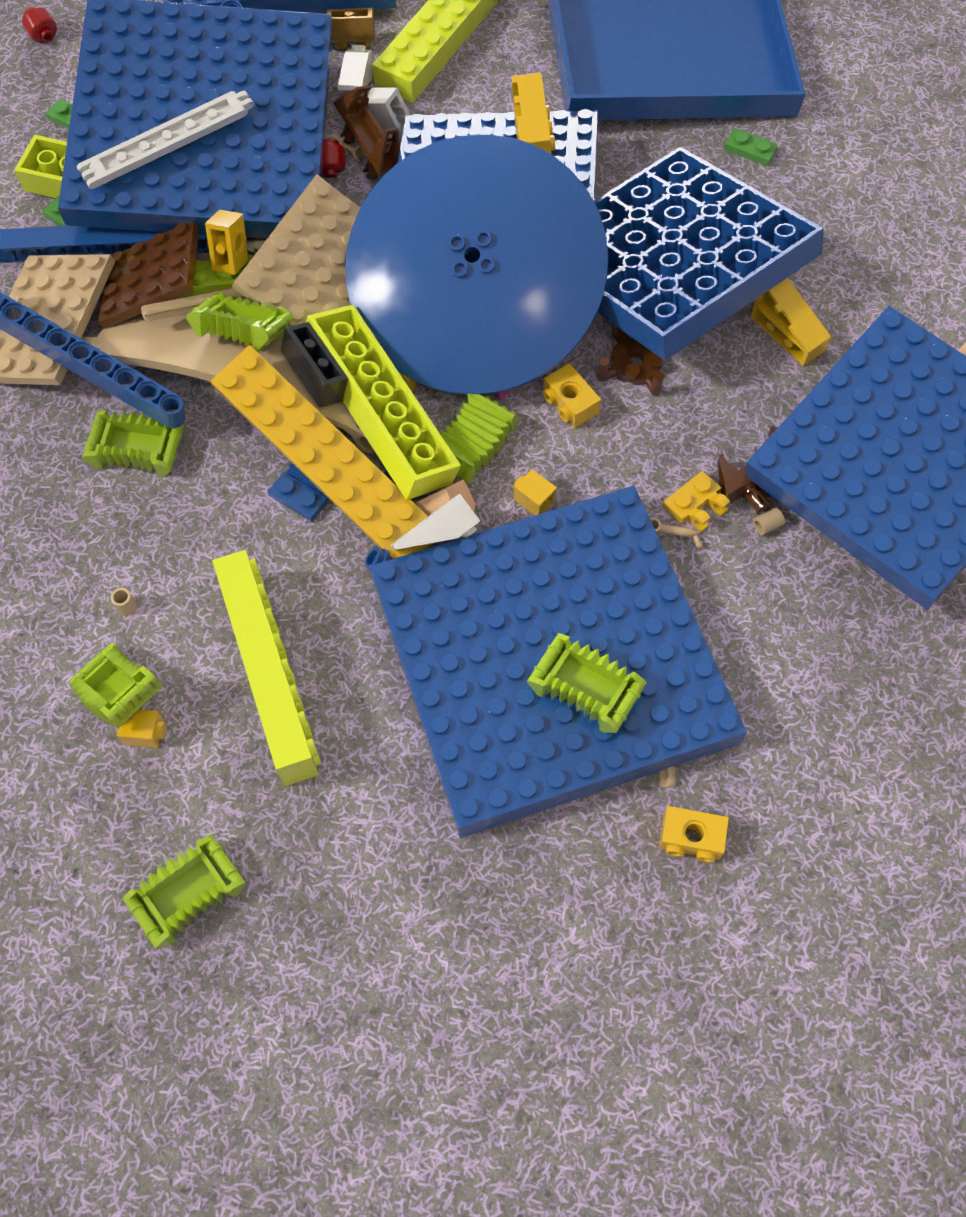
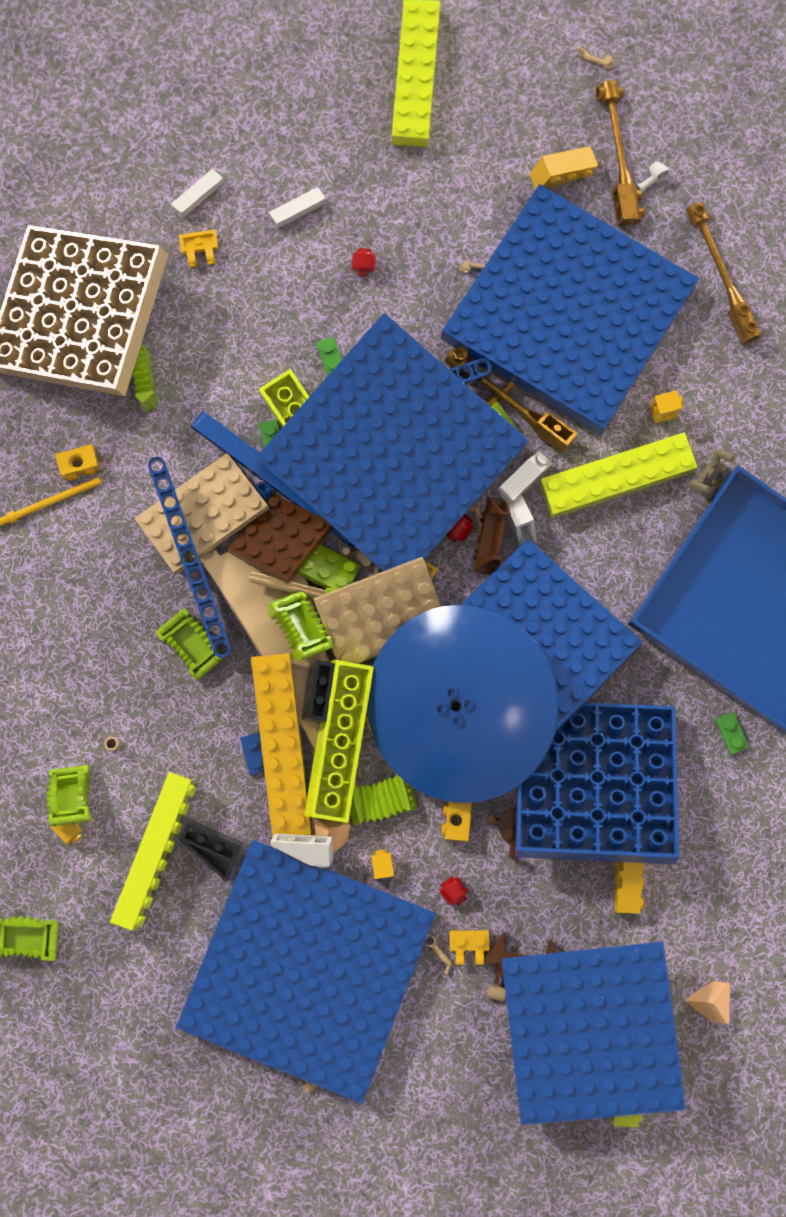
camera: 40 degrees right, 15 degrees up
(164, 138) = (352, 463): white hinge -> none
(227, 242) = (337, 558): yellow brick -> none
(331, 613) = (212, 847): none -> black wedge
(376, 556) = (263, 833): blue plate -> none
(531, 112) = (581, 630): yellow wedge -> none
(588, 682) = (302, 1010): lime piece -> none
(631, 461) = (454, 891): none -> red head
(710, 828) = (291, 1115): yellow brick -> none

